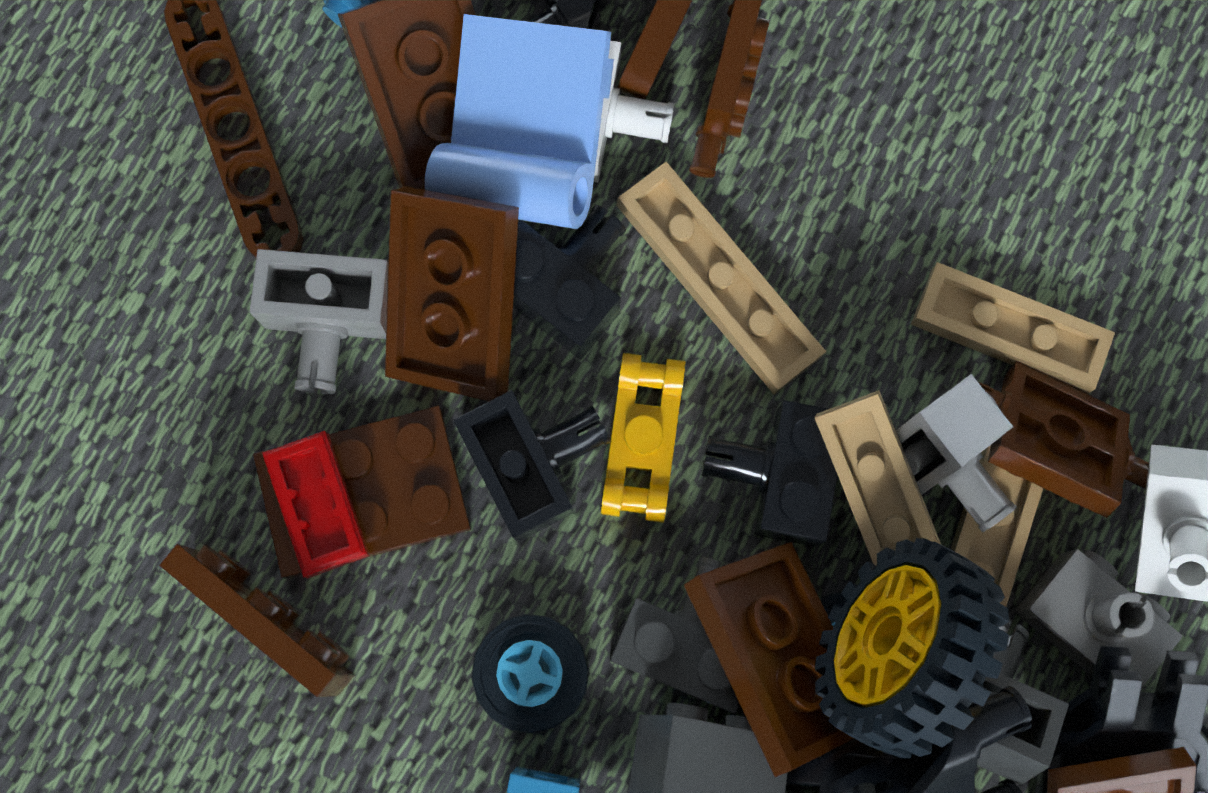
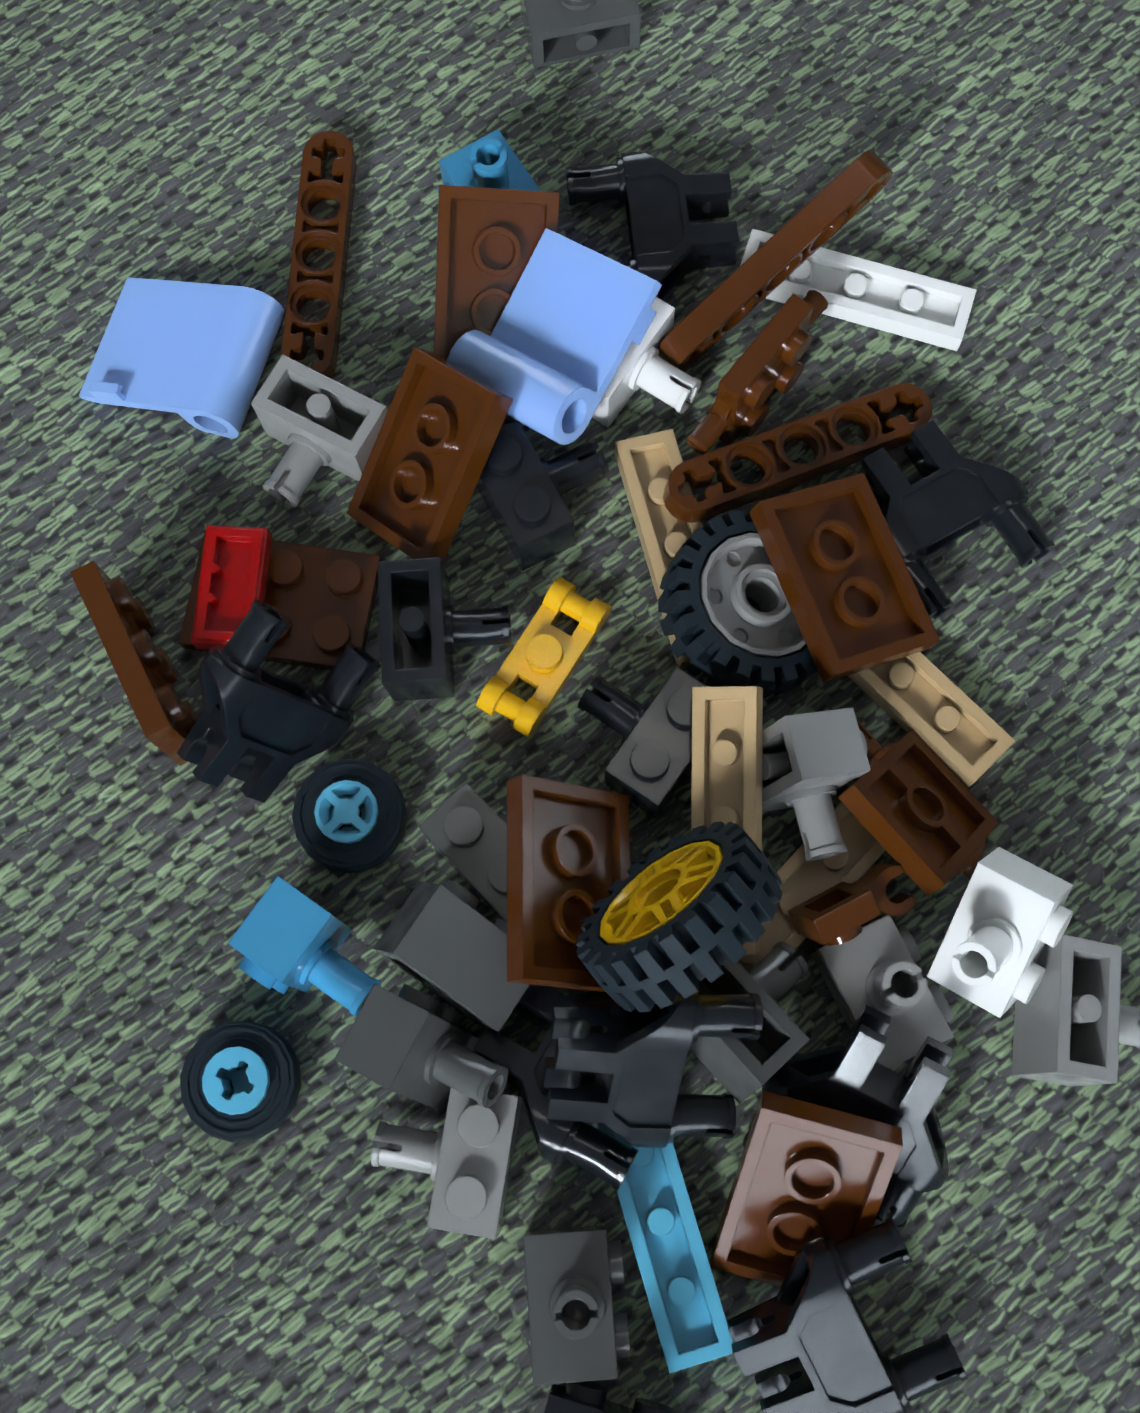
camera: 30 degrees right, 5 degrees down
(142, 279) = (185, 351): none -> light blue door
(411, 615) = (262, 722): none -> black connector
(782, 159) = (782, 473): none -> reddish brown beam
(796, 338) = (716, 623): none -> wheel
(900, 246) = (843, 576): none -> reddish brown plate
(956, 127) = (948, 504): none -> black connector
(1035, 563) = (842, 909): none -> reddish brown plate

